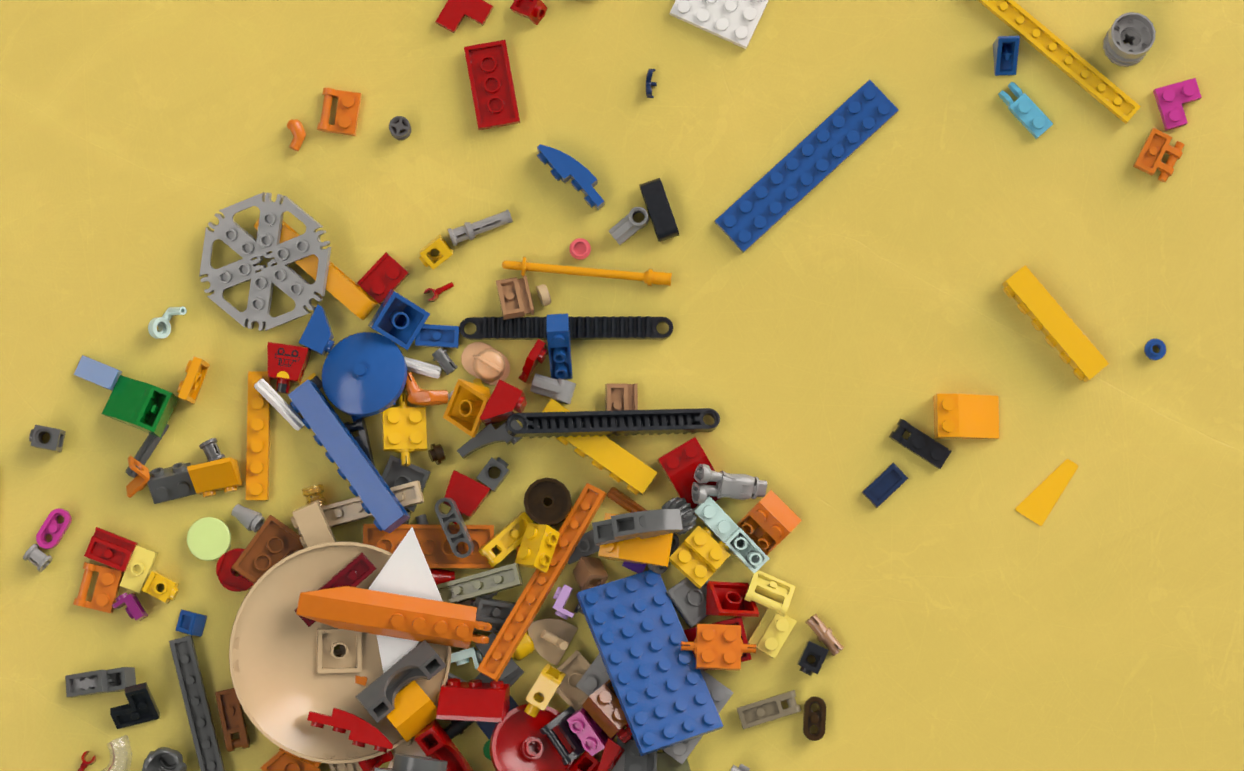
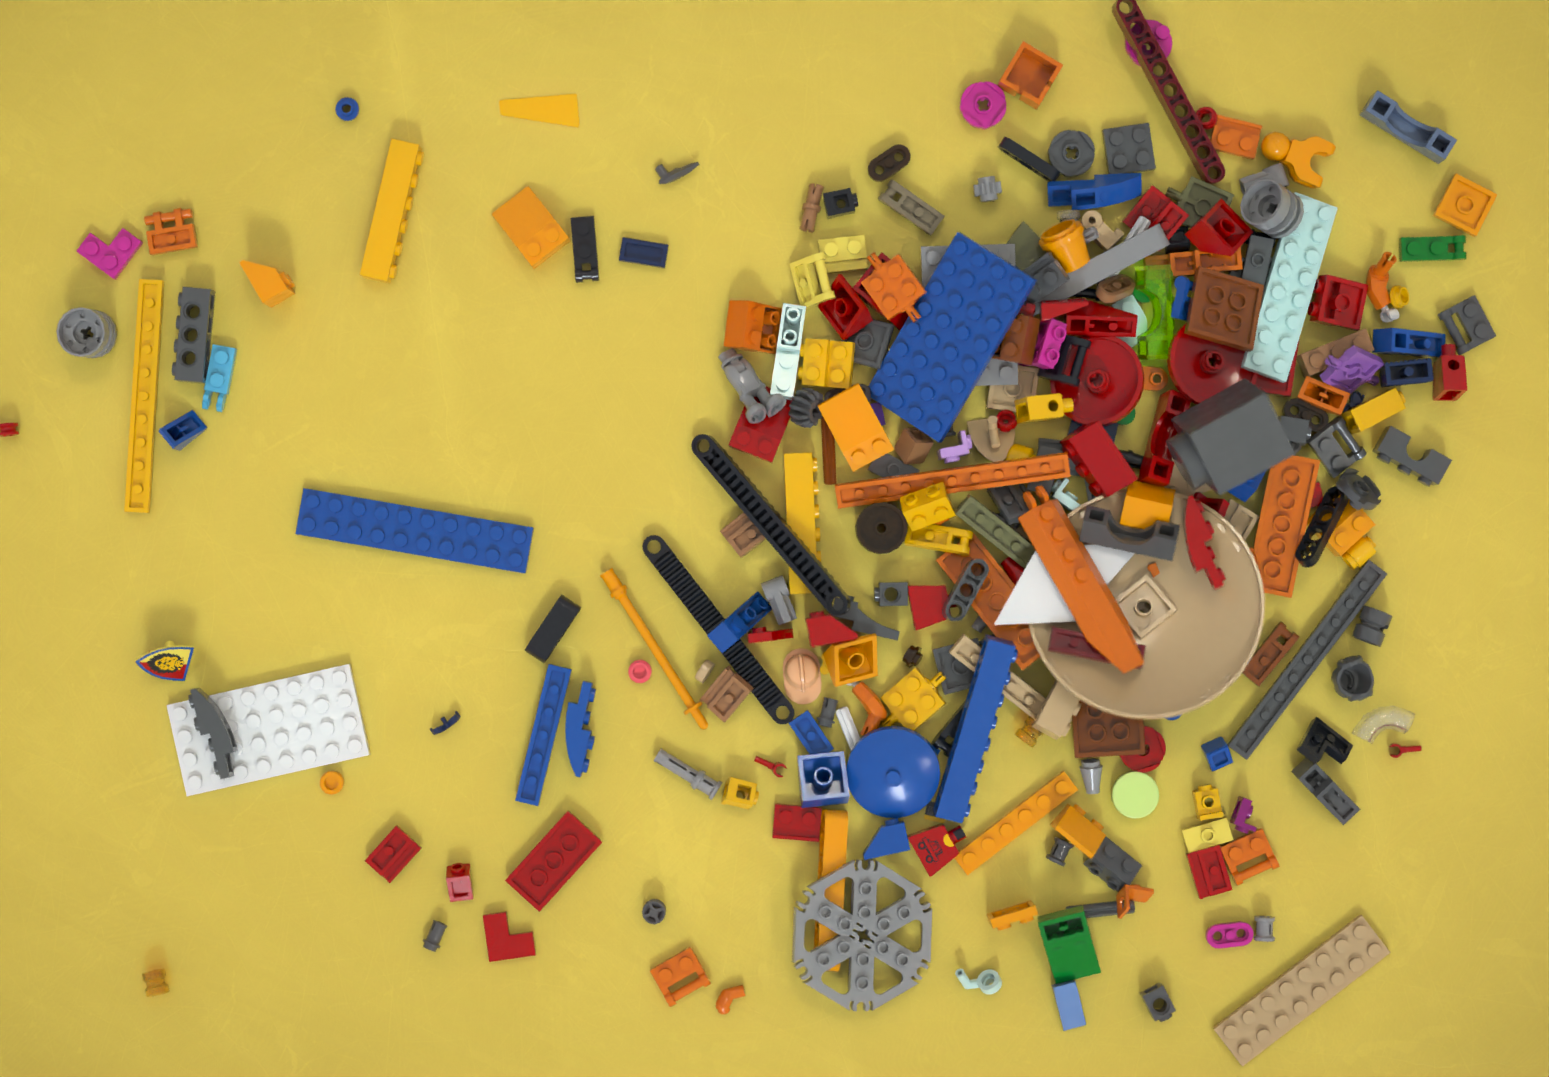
camera: 135 degrees left, 5 degrees up
(279, 404) = (975, 825): white axle -> none
(559, 660) = (1006, 415): none -> red plate
(588, 145) = (543, 735): none -> blue plate
(627, 227) = (589, 645): light grey piece -> none
(637, 524) = (844, 433): dark grey slope -> none
(926, 552) = (675, 174): none -> dark grey bar
(1067, 194) = (268, 282): none -> light orange slope
(1071, 126) = (201, 346): none -> dark grey brick

